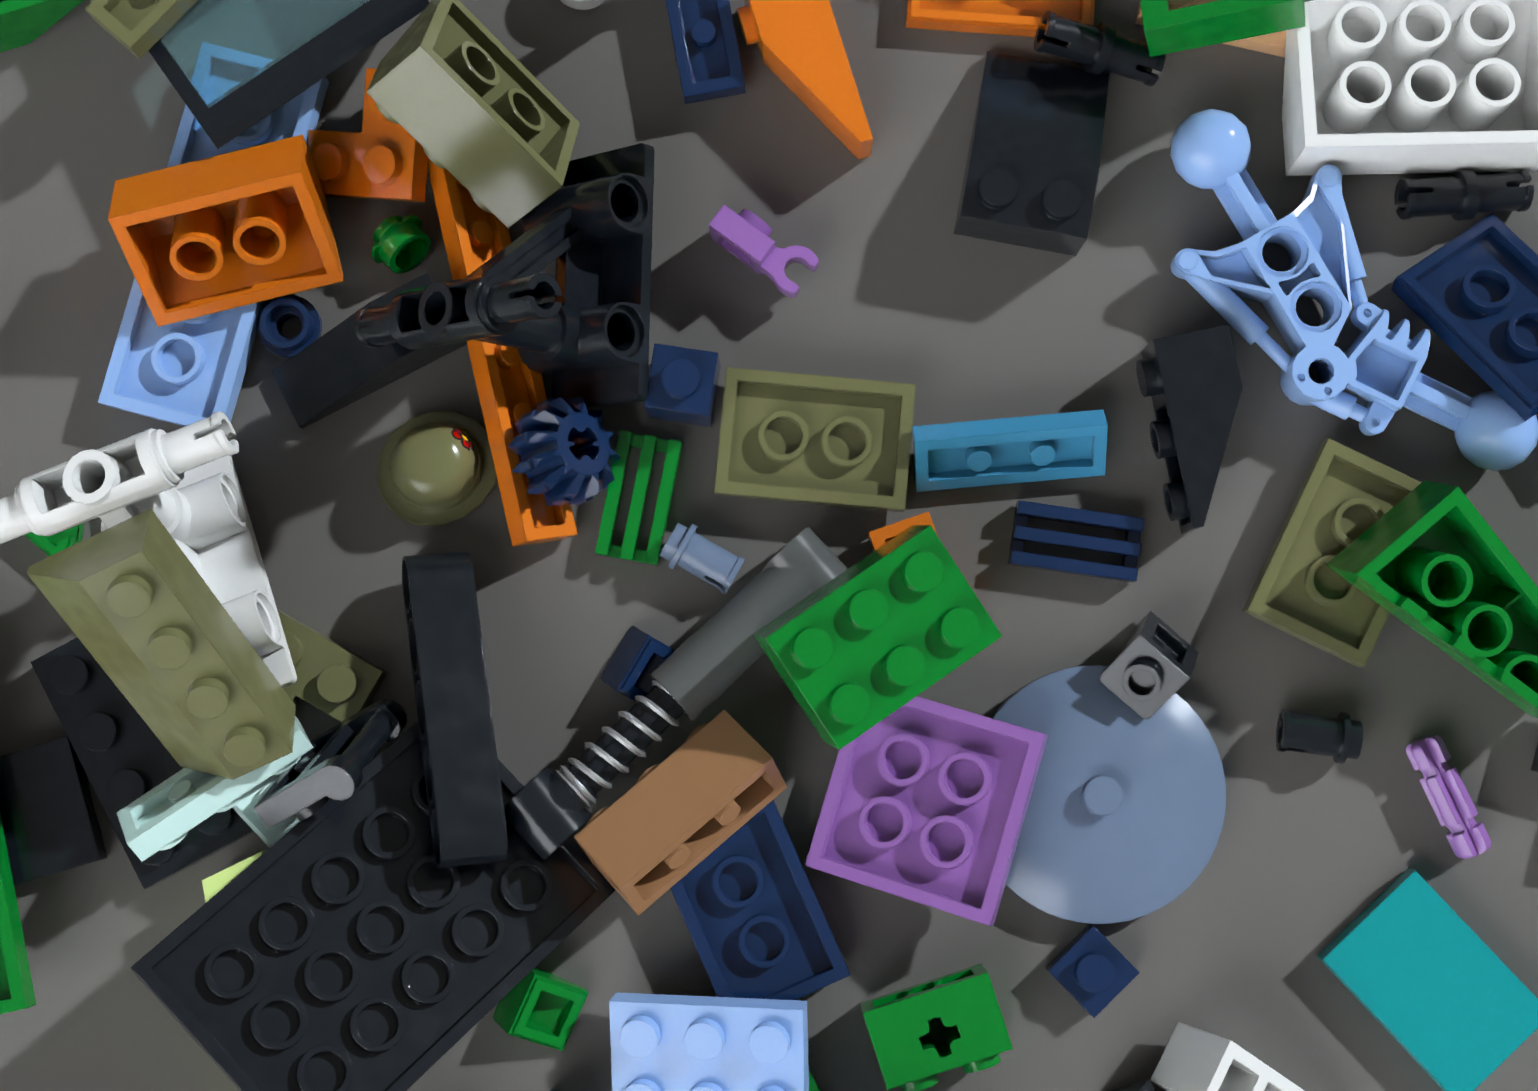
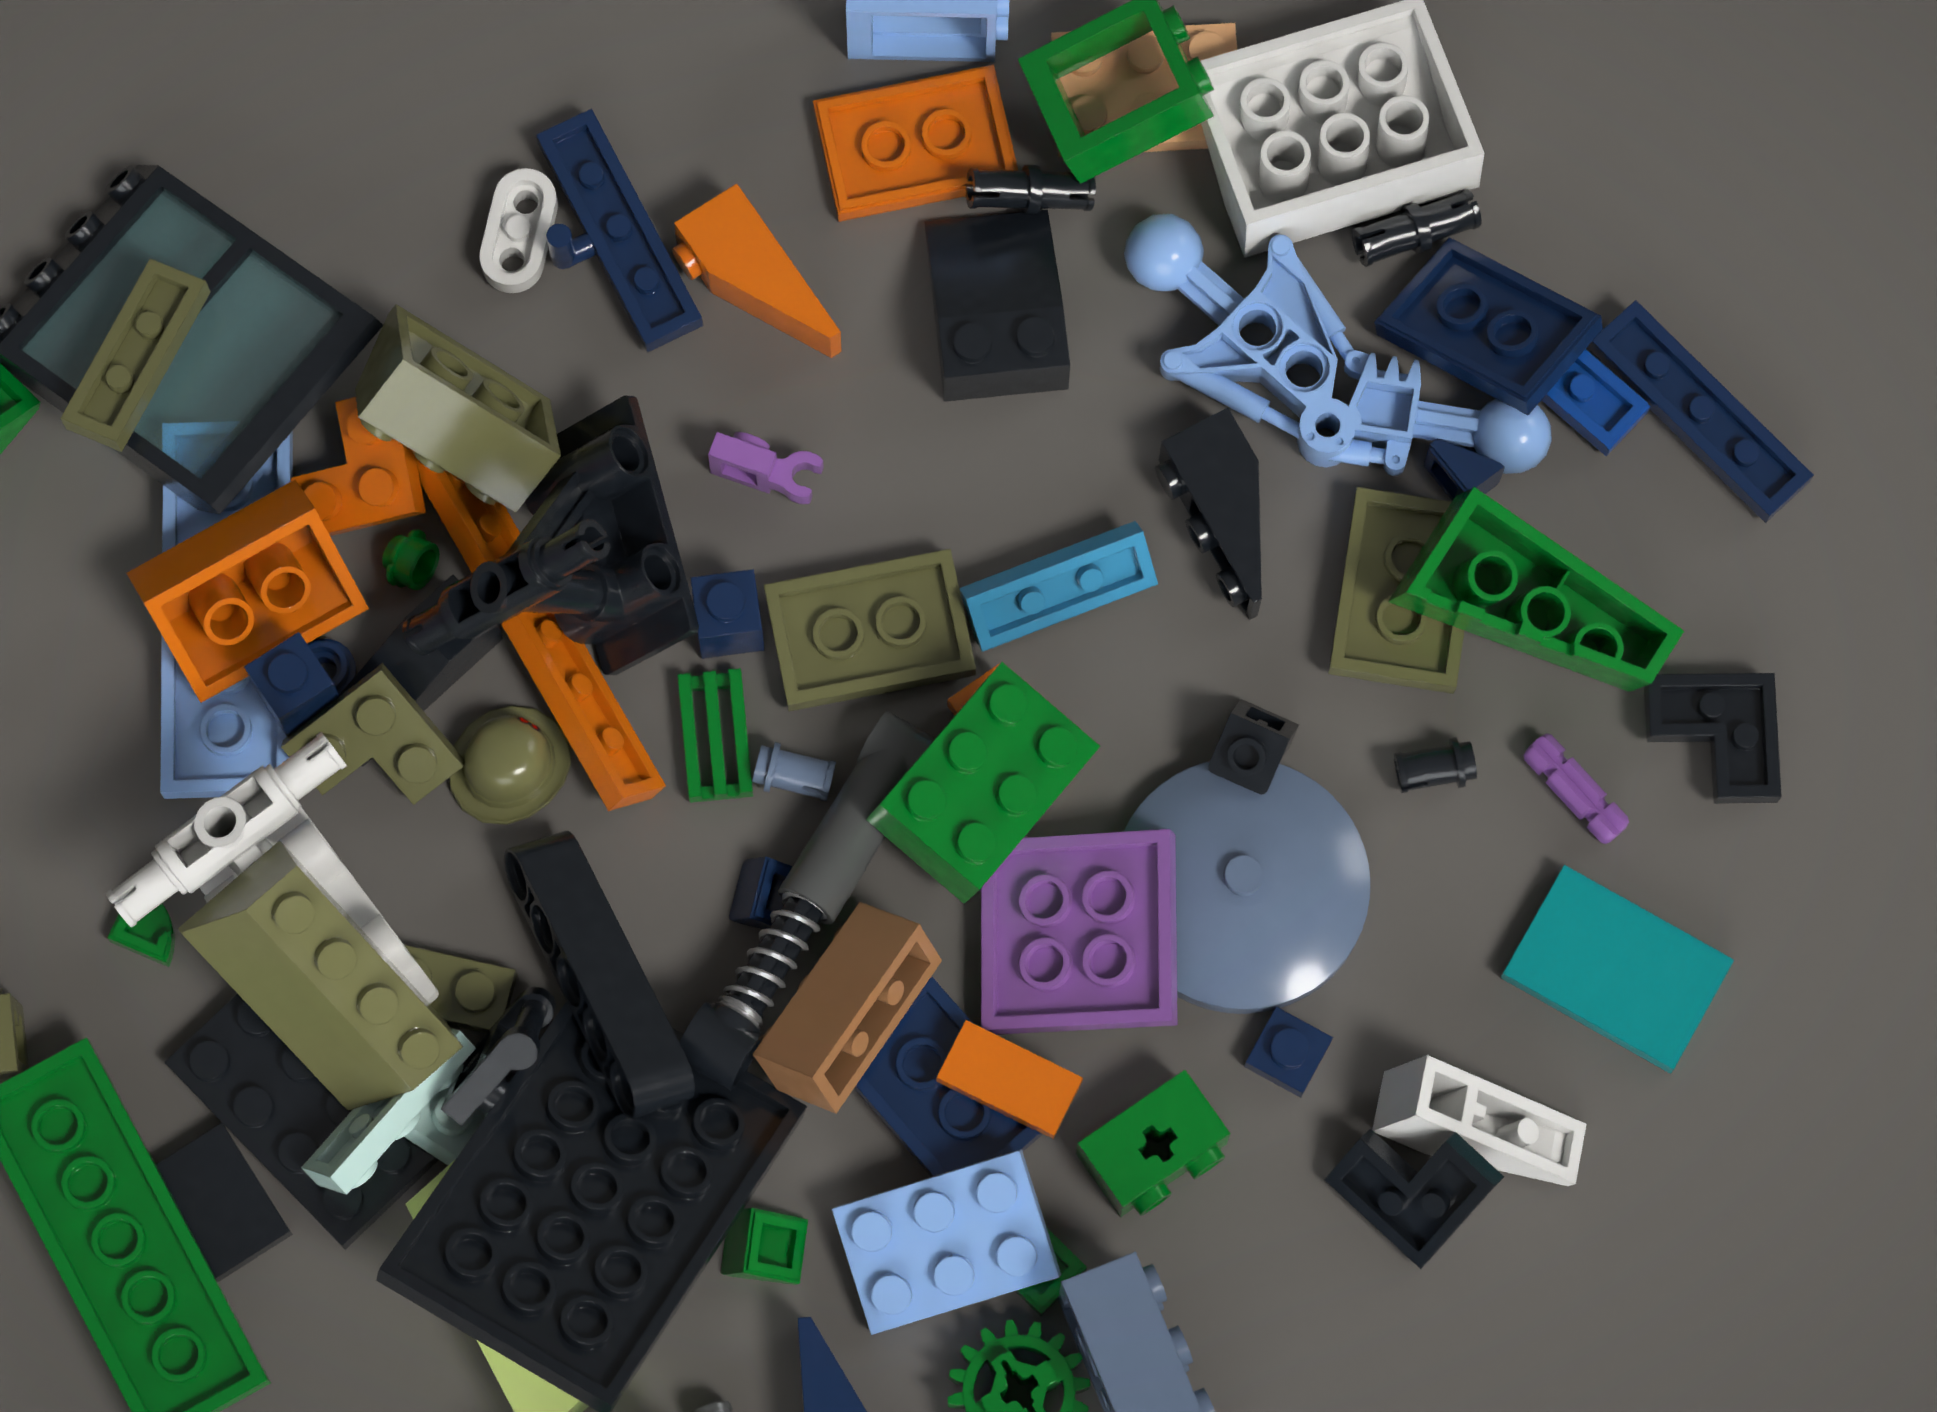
camera: 25 degrees left, 10 degrees down
(242, 337) = (291, 683): none -> dark blue brick
(311, 395) = (382, 723): none -> olive plate
(564, 451) = (633, 705): dark blue gear -> none
(816, 928) = (1009, 1079): none -> orange tile
(1129, 548) = (1146, 631): dark blue tile -> none
(1433, 451) = (1461, 469): none -> dark blue slope

